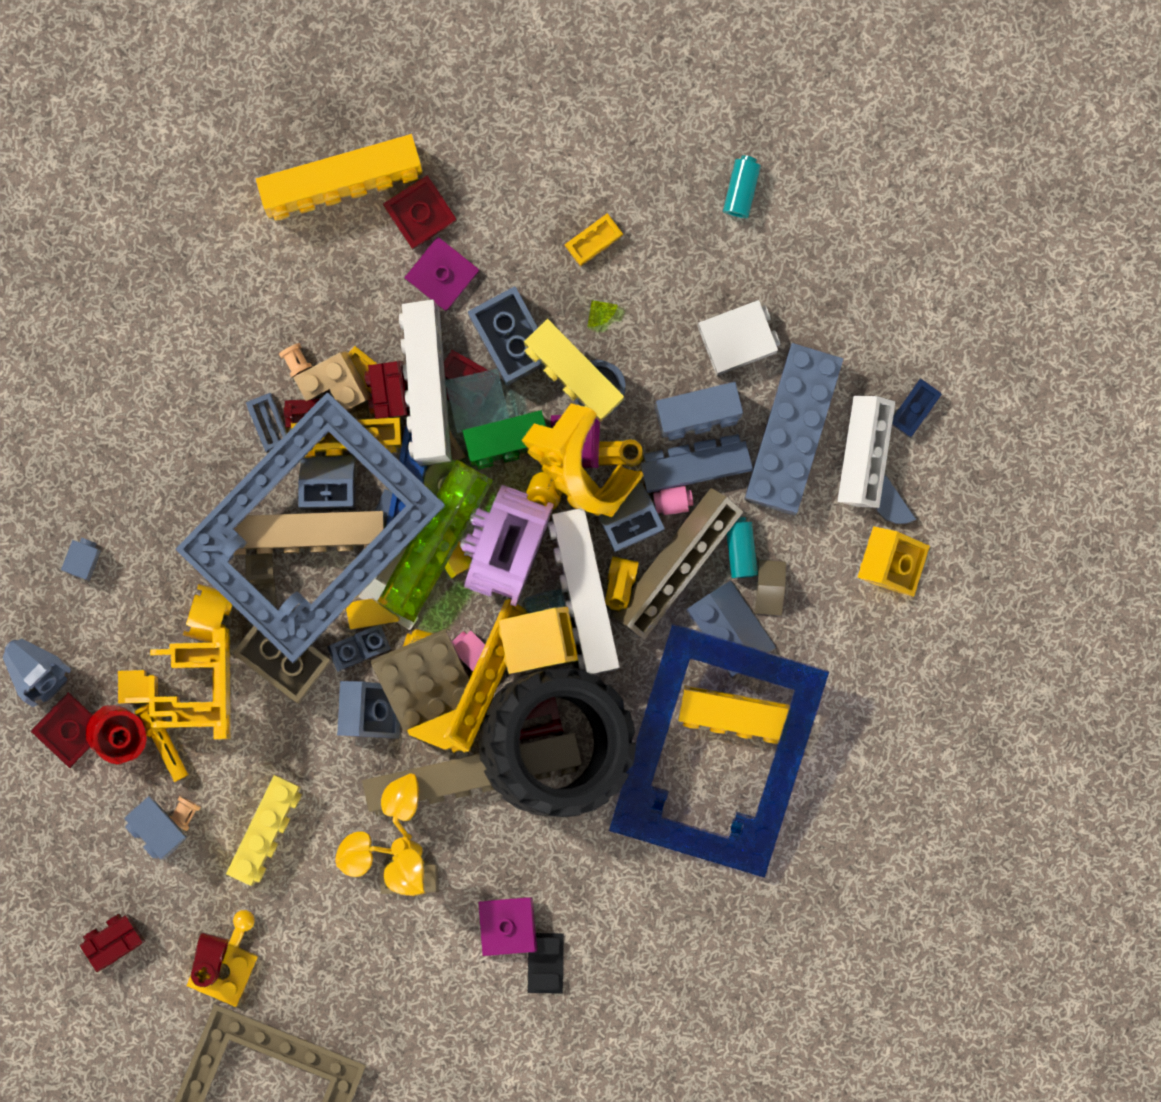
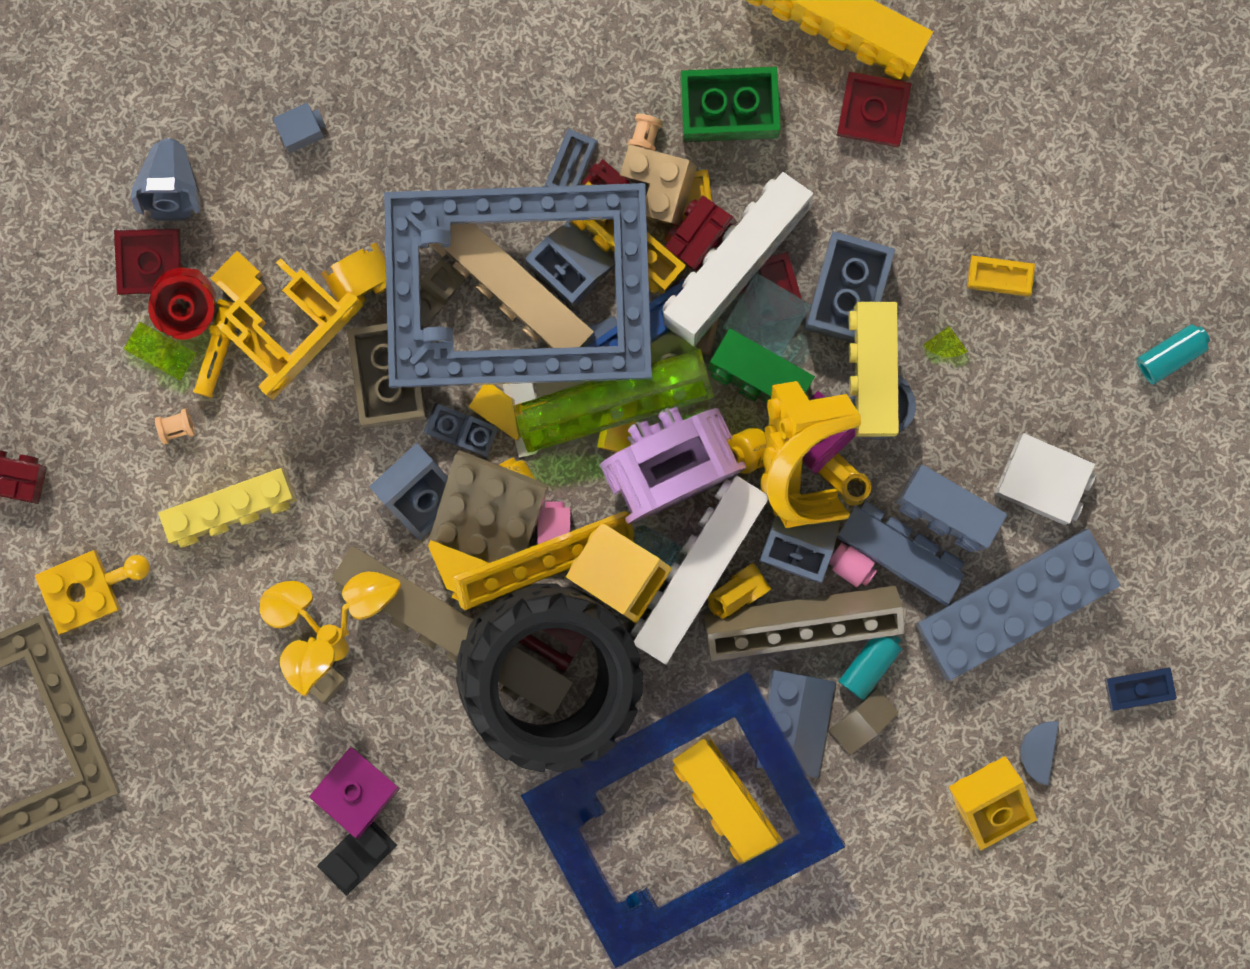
camera: 45 degrees right, 0 degrees up
(128, 777) = (159, 351): none -> clear neon green slope
(155, 828) = (135, 415): sand blue slope -> none
(210, 955) = (76, 569): dark red piece -> none
(330, 293) = (729, 104): none -> green brick
(441, 274) = (841, 180): magenta plate -> none
(869, 422) = (1058, 684): white brick -> none

